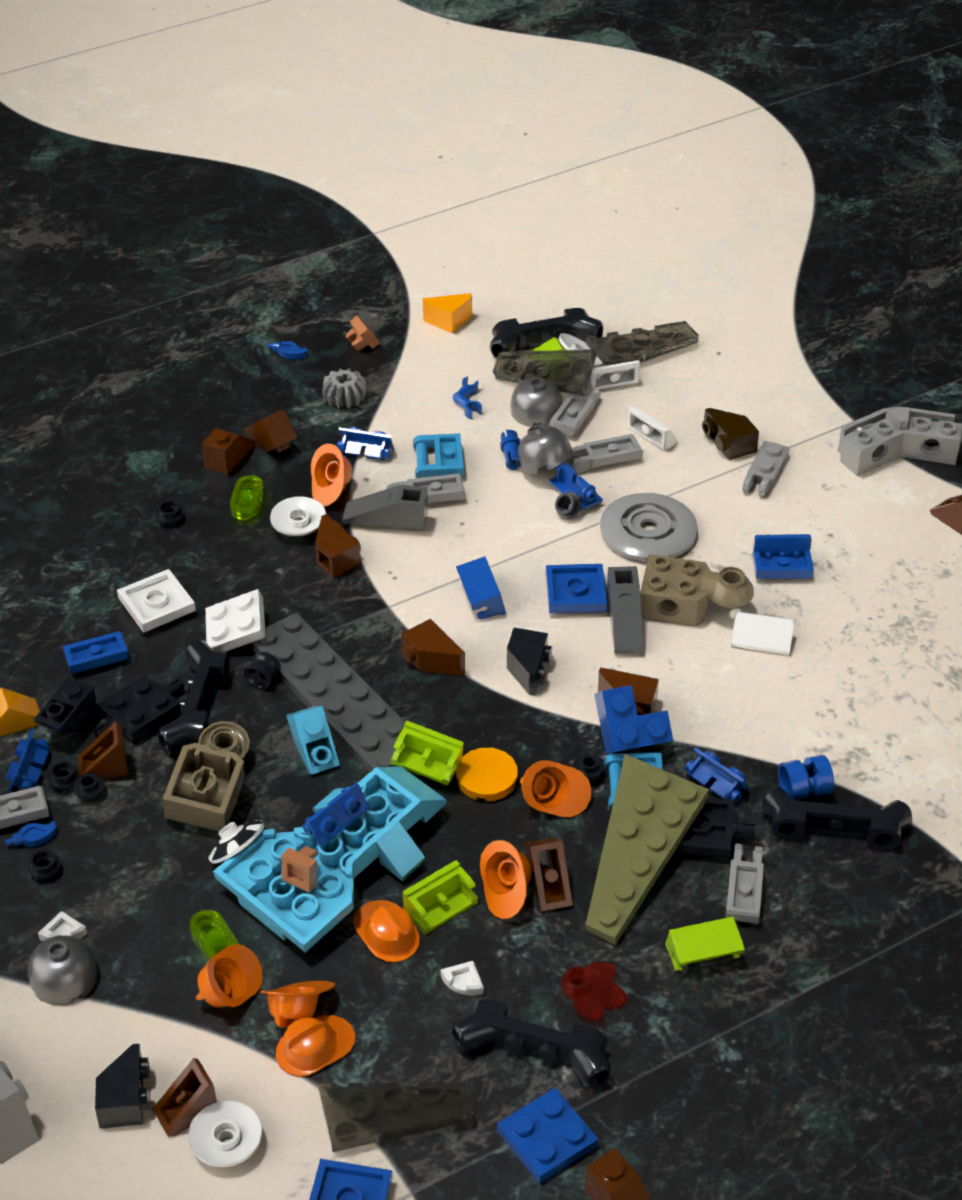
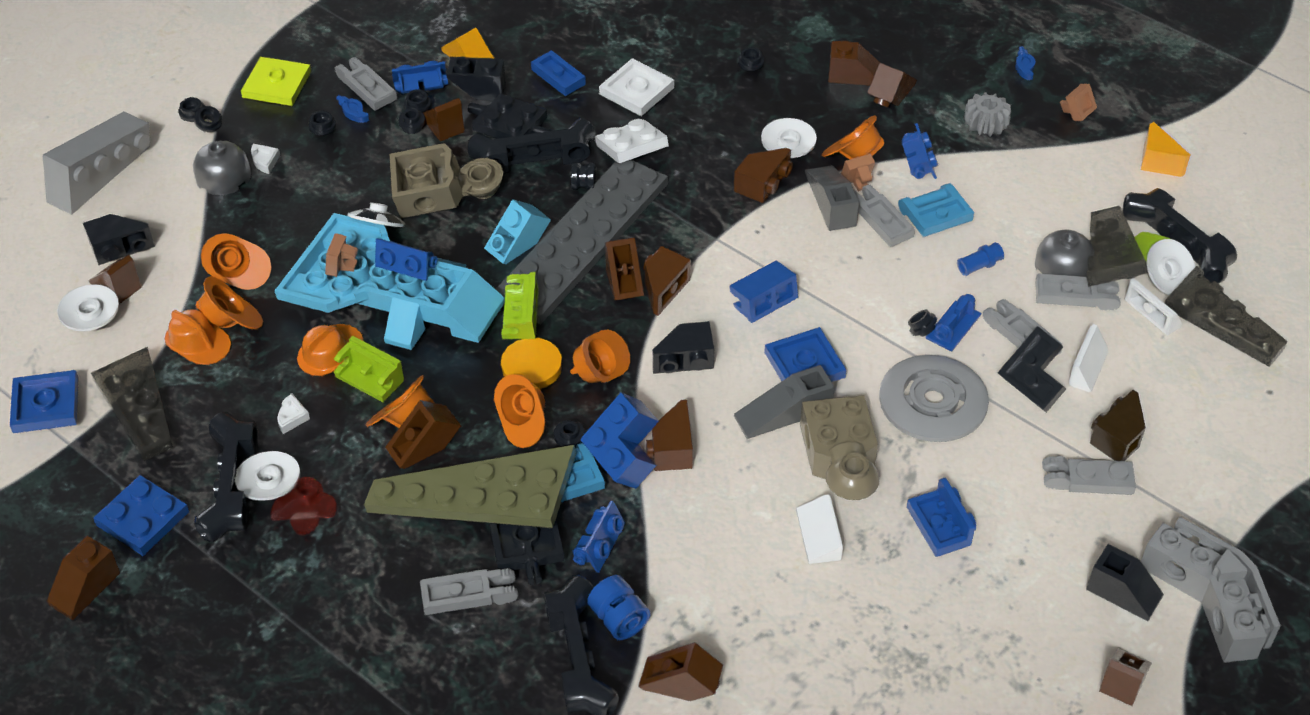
camera: 70 degrees right, 5 degrees up
(216, 939) = (281, 240): clear neon green plate -> none
(246, 497) = (797, 99): clear neon green plate -> none
(370, 482) = (859, 170): none -> nougat tile
(408, 674) = (623, 268): none -> reddish brown slope
(460, 398) = (1058, 203): blue arm -> none
(513, 723) = (601, 357): none -> orange piece
(543, 448) = (980, 275): flat silver cylinder -> none
(550, 996) = (267, 475): none -> white dish
(651, 462) = (1027, 367): none -> black plate
(704, 942) = (376, 574): lime hinge -> none
(879, 482) = (1125, 583): none -> black slope
(883, 759) = (682, 673): none -> reddish brown slope

